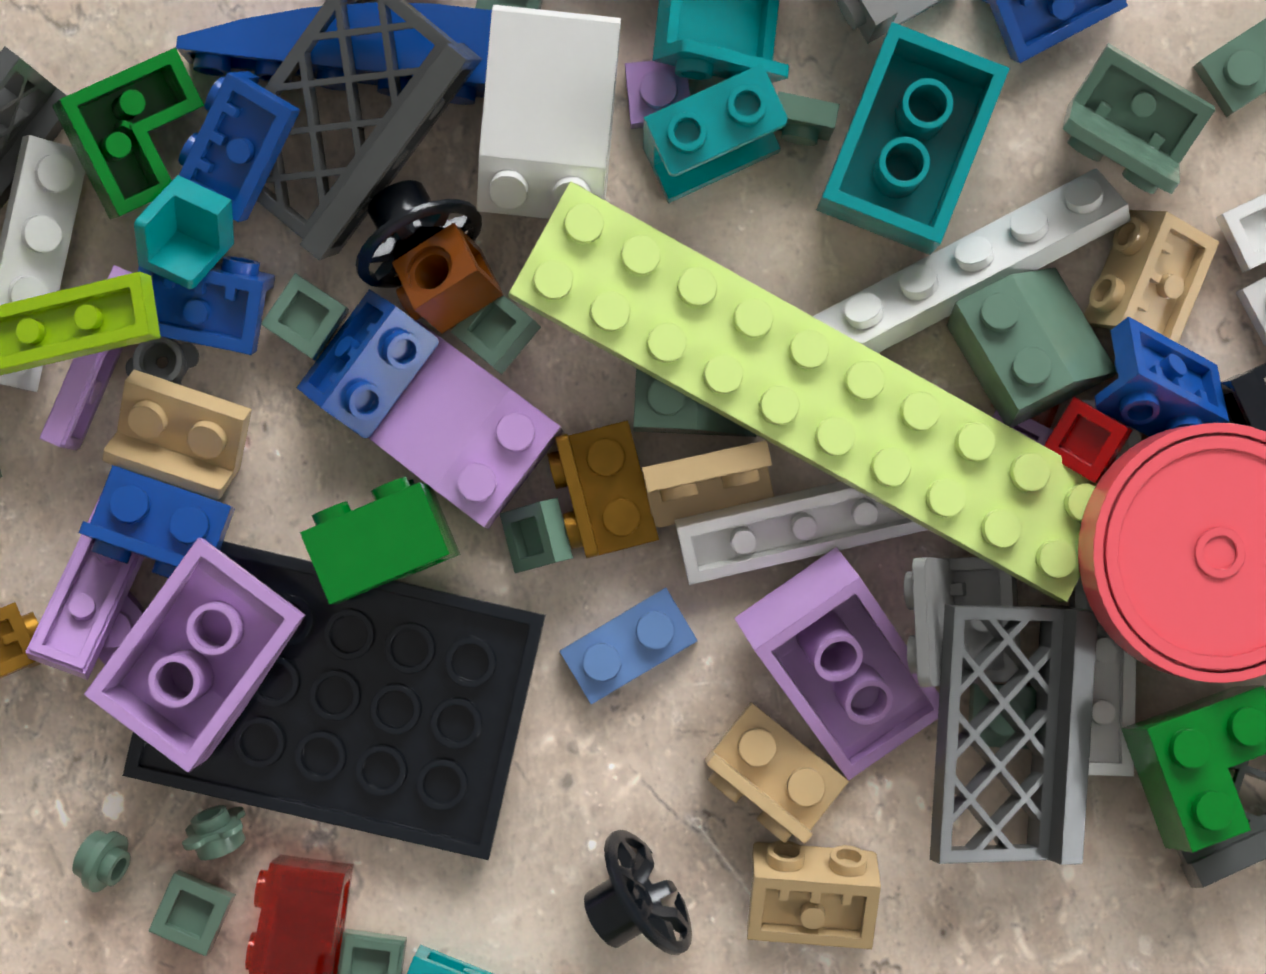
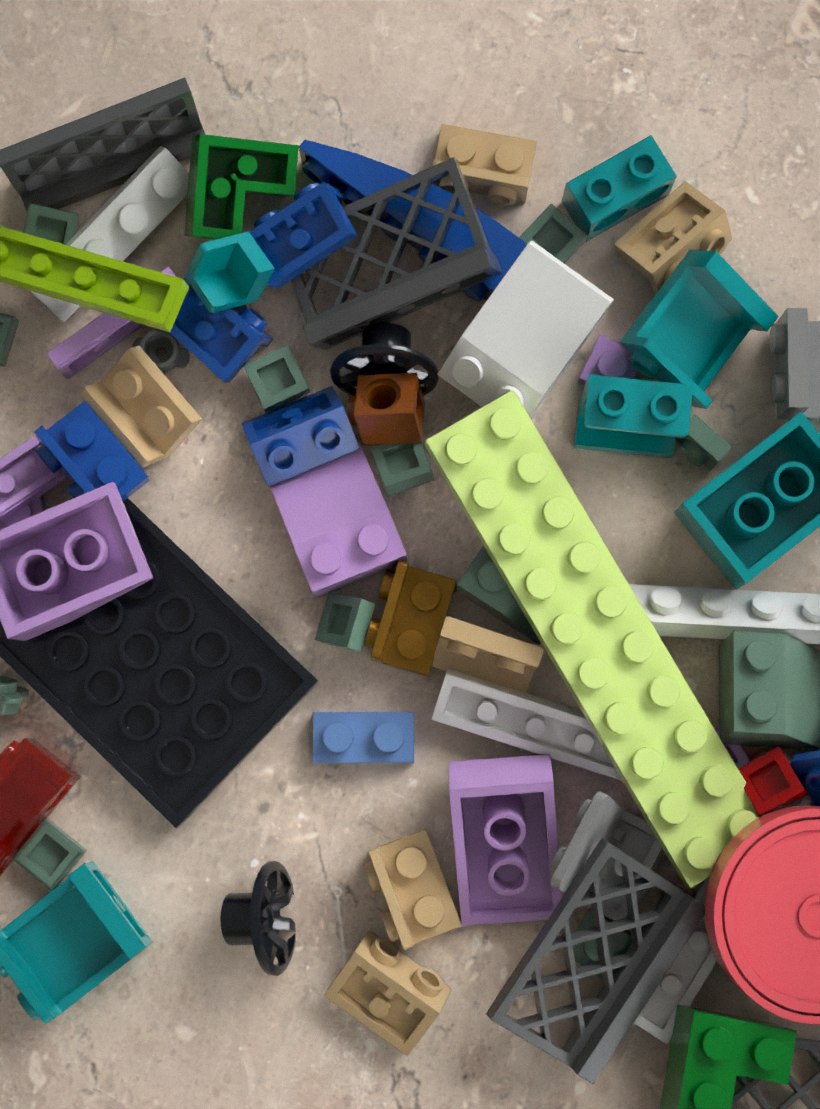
camera: 30 degrees right, 5 degrees down
(379, 541) = (234, 559): green brick -> none

